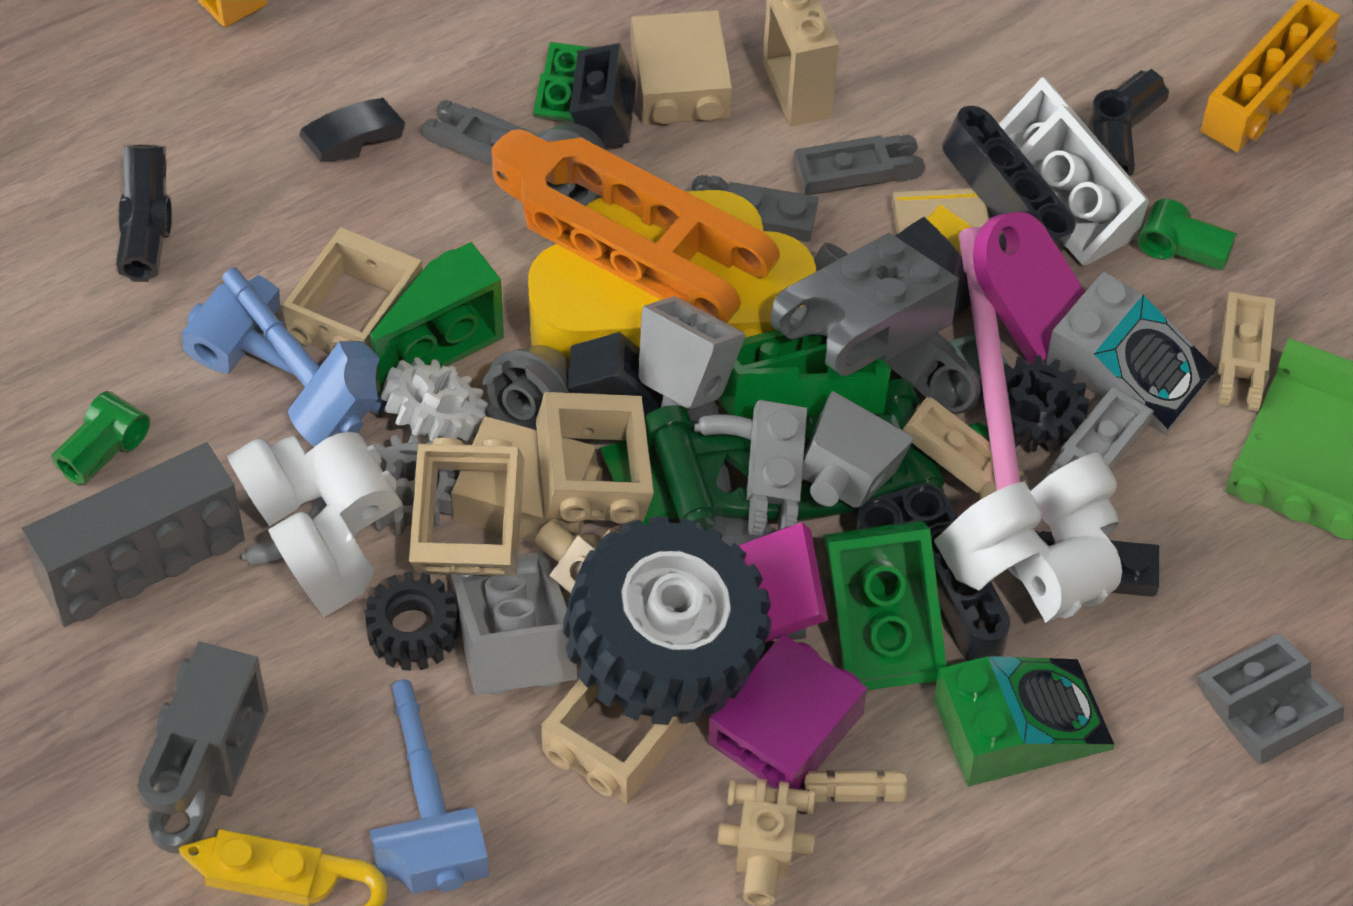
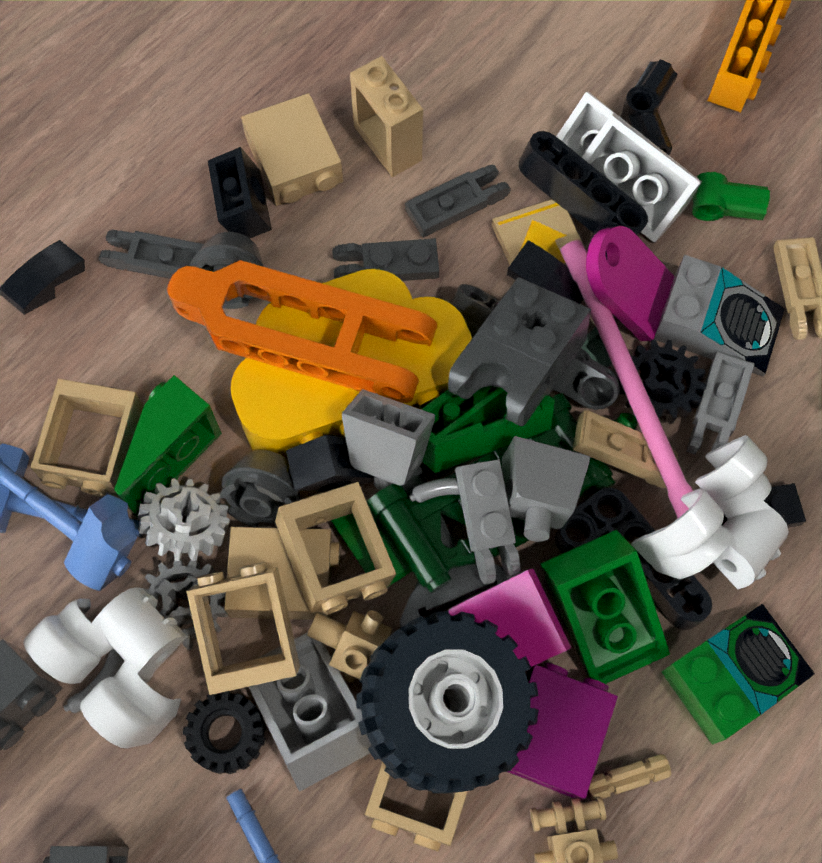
camera: 15 degrees left, 15 degrees up
(557, 82) = (197, 187): green slope -> none

